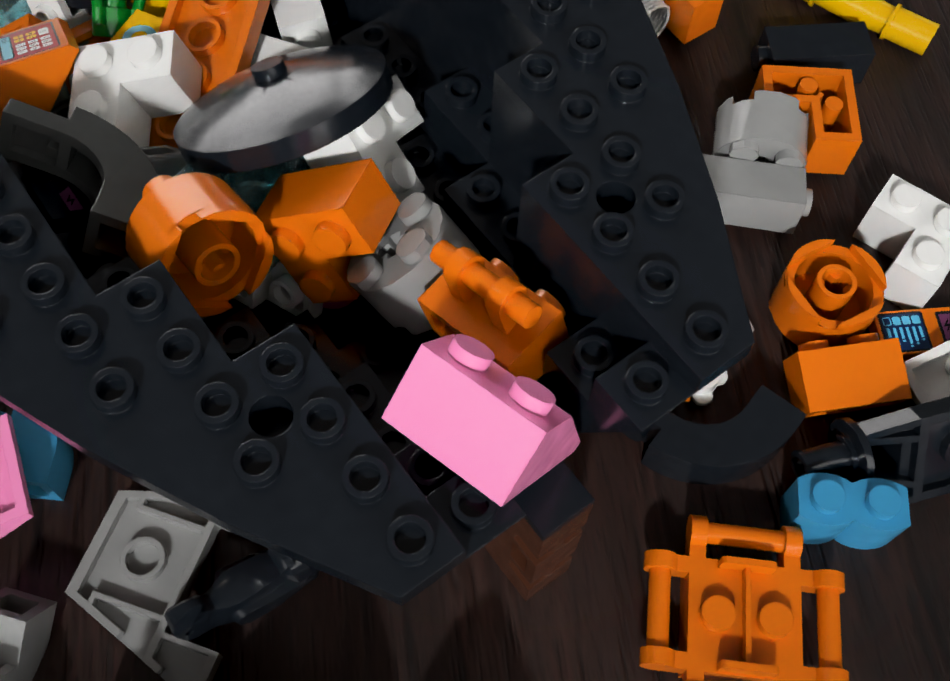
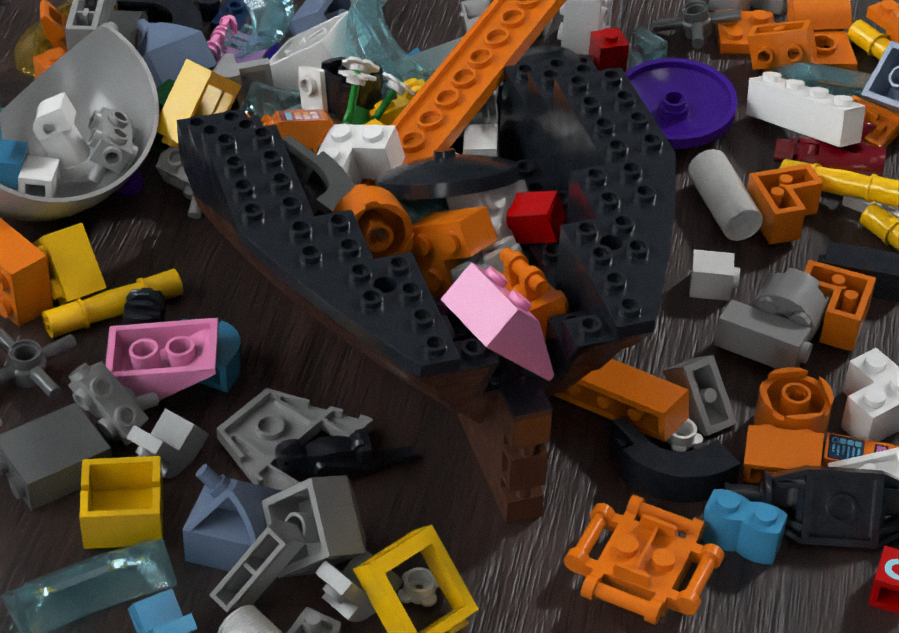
camera: 20 degrees right, 20 degrees down
(443, 142) = (536, 217): none -> red brick

